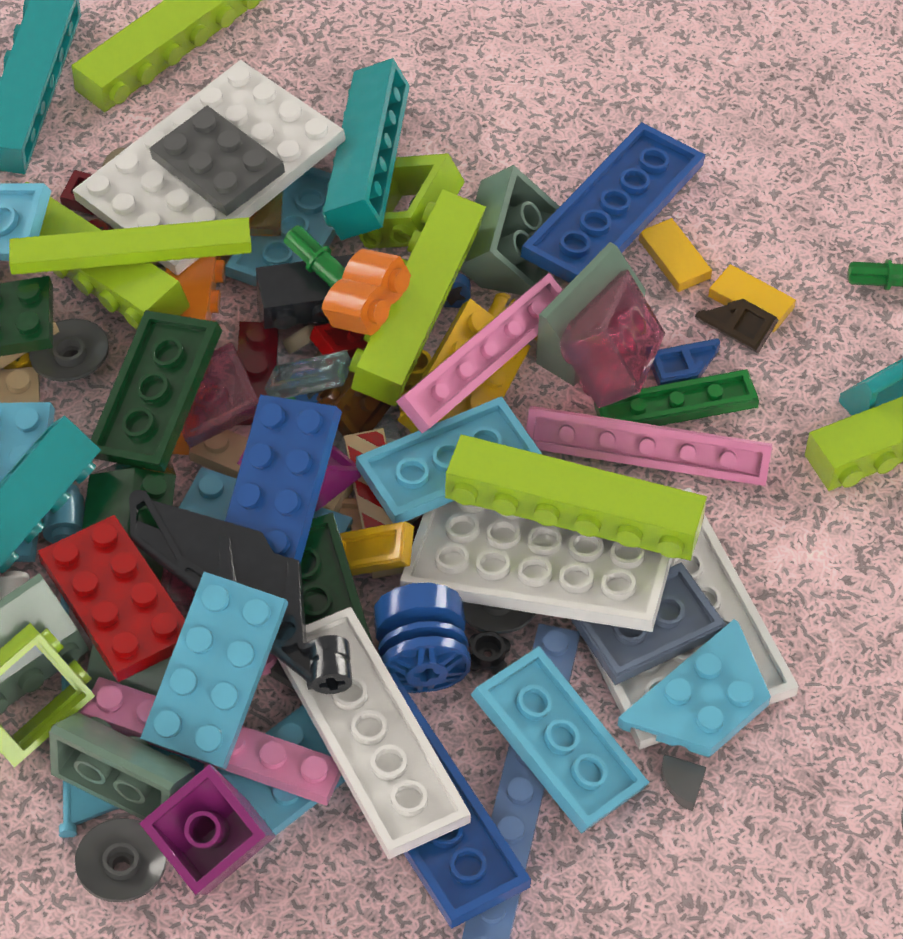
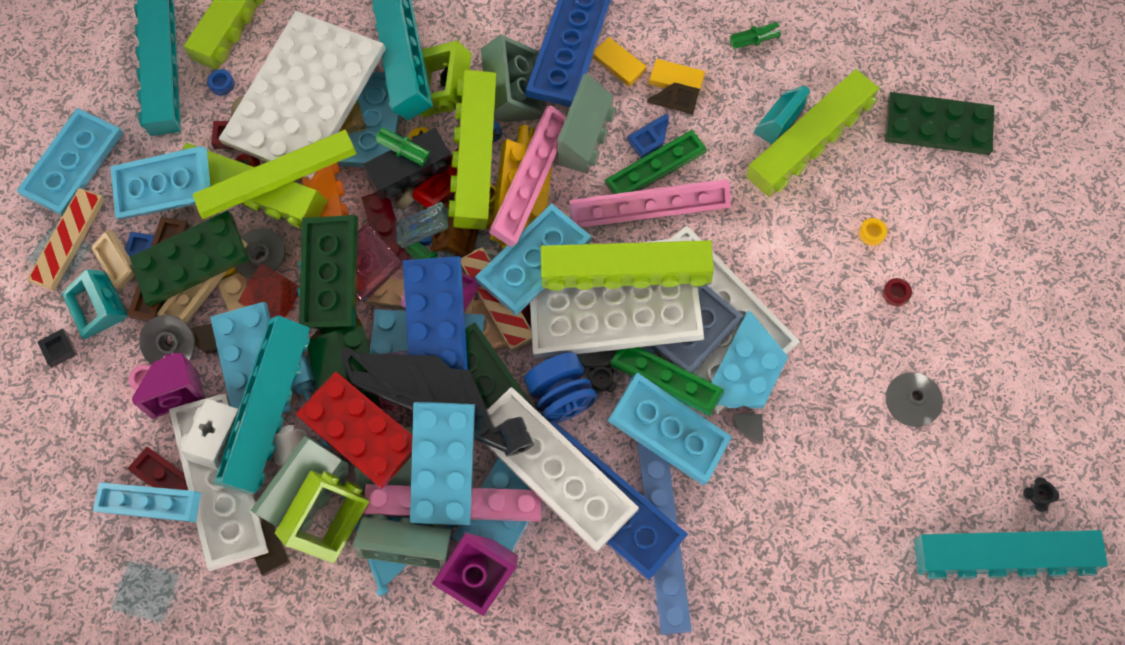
camera: 15 degrees left, 15 degrees up
(68, 394) = (272, 289): none -> clear red piece
(104, 128) = (220, 82): none -> blue tile
(115, 843) = (409, 601): dark grey dish -> none
(217, 160) = (308, 91): dark grey plate -> none
(366, 291) = (443, 161): orange brick -> none
(378, 547) = (510, 334): yellow tile -> none
(591, 676) = (672, 379): none -> green tile
(613, 342) = (607, 141): clear pink slope -> none

